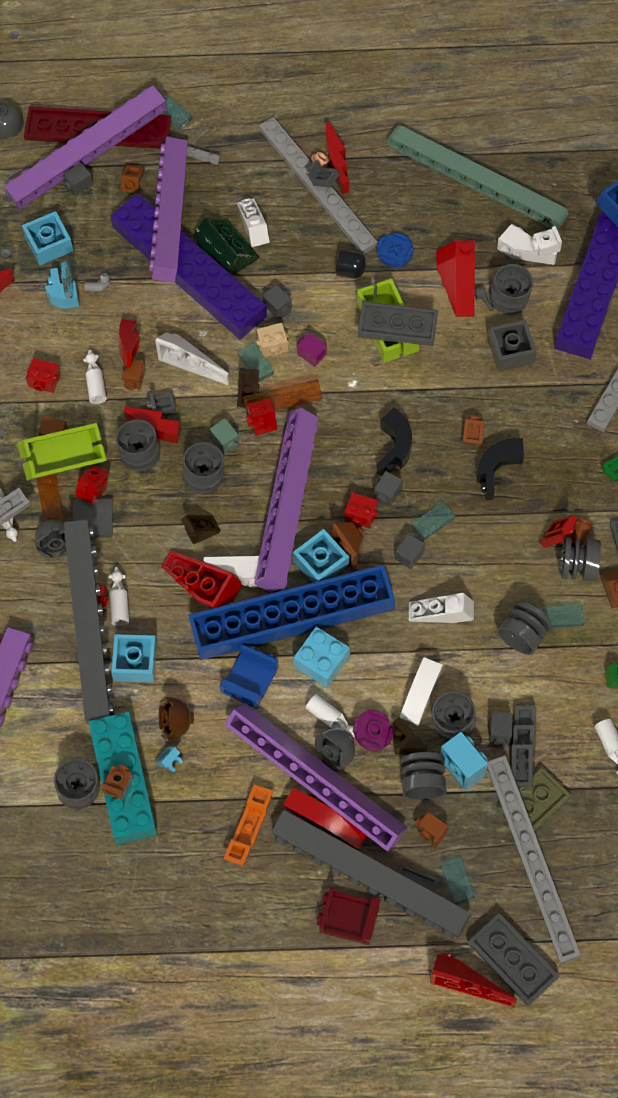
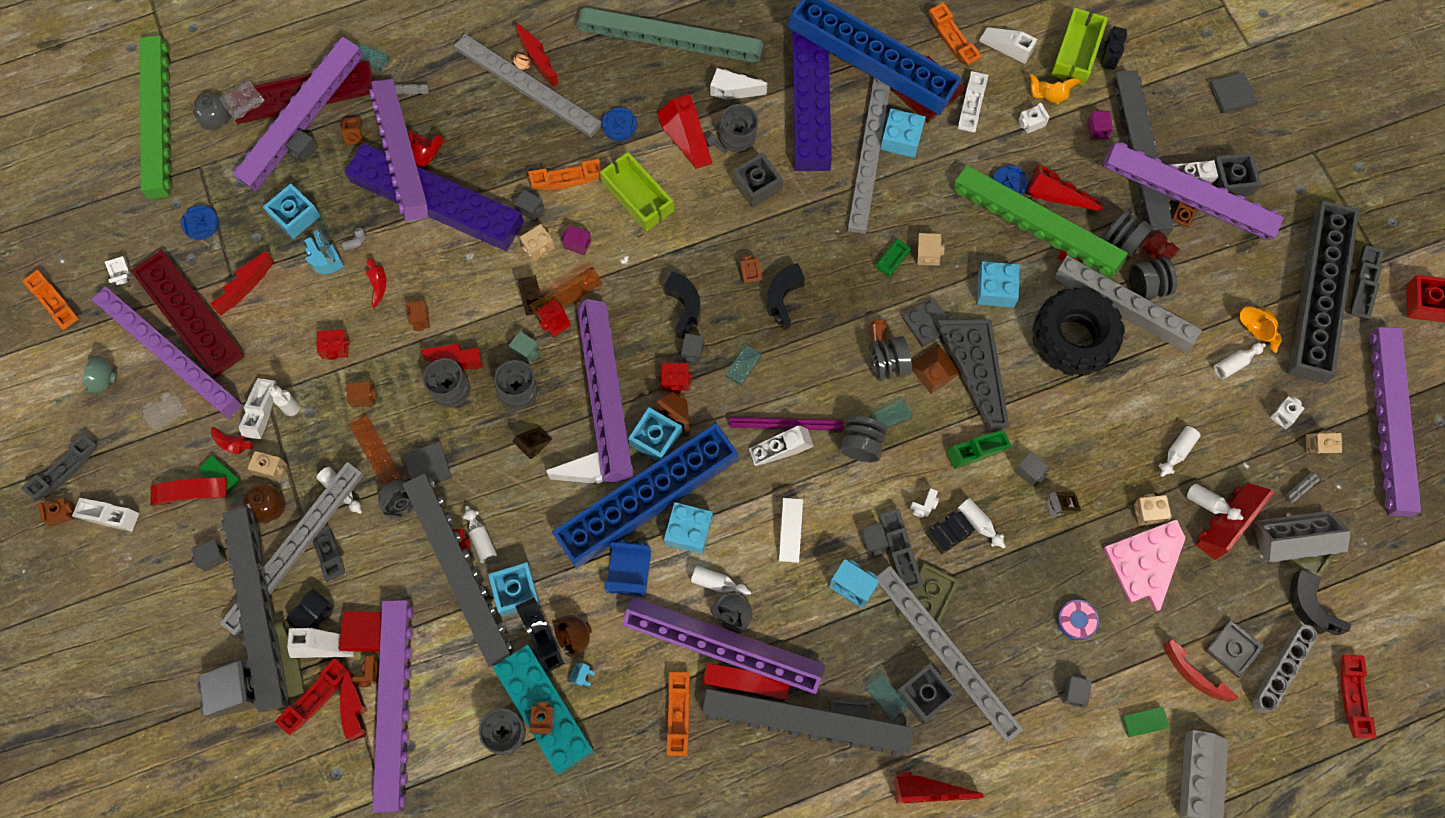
camera: 20 degrees left, 5 degrees up
(36, 117) = (241, 99): none -> clear bracket
(61, 451) = (375, 413): lime piece -> none
(92, 484) = (415, 434): red head -> none
(94, 380) = (383, 332): white wheel -> none
(107, 327) = (378, 280): none -> red bar
(128, 341) = (403, 286): red slope -> none
(144, 707) = (540, 635): none -> black arch
(162, 403) = (454, 335): dark grey bracket -> none
(182, 354) = (453, 281): white wedge -> none
(194, 215) = (424, 149): none -> red helmet
(201, 580) = (553, 493): red wedge -> none
(225, 244) = (461, 166): clear green slope -> none
(253, 222) = (480, 137): white slope -> none
(255, 360) = (528, 267): clear light blue tile -> none
(322, 176) = (529, 75): dark grey bracket -> none
(322, 286) = (565, 178): none -> orange slope
(348, 916) = (801, 768): dark red panel -> none
(350, 264) = (584, 149): black helmet -> none
(373, 730) = (760, 582): magenta tile -> none
(397, 323) = (648, 192): dark grey tile -> none
(410, 551) = (733, 400): dark grey brick -> none
(411, 742) = (799, 581): dark brown slope -> none
(423, 776) = (824, 613): dark grey wheel -> none
(431, 828) = (846, 657): dark orange brick -> none
(451, 588) = (785, 423): none -> magenta axle
(453, 705) = (830, 532): dark grey wheel -> none
(496, 888) = (926, 693): none -> dark grey brick
(513, 959) = (964, 755): dark grey plate -> none
(546, 242) = (756, 75): white brick -> none
(558, 529) = (860, 338): red plate -> none
(562, 716) = (930, 503): none -> white bracket
(580, 745) = (950, 532): none -> black brick

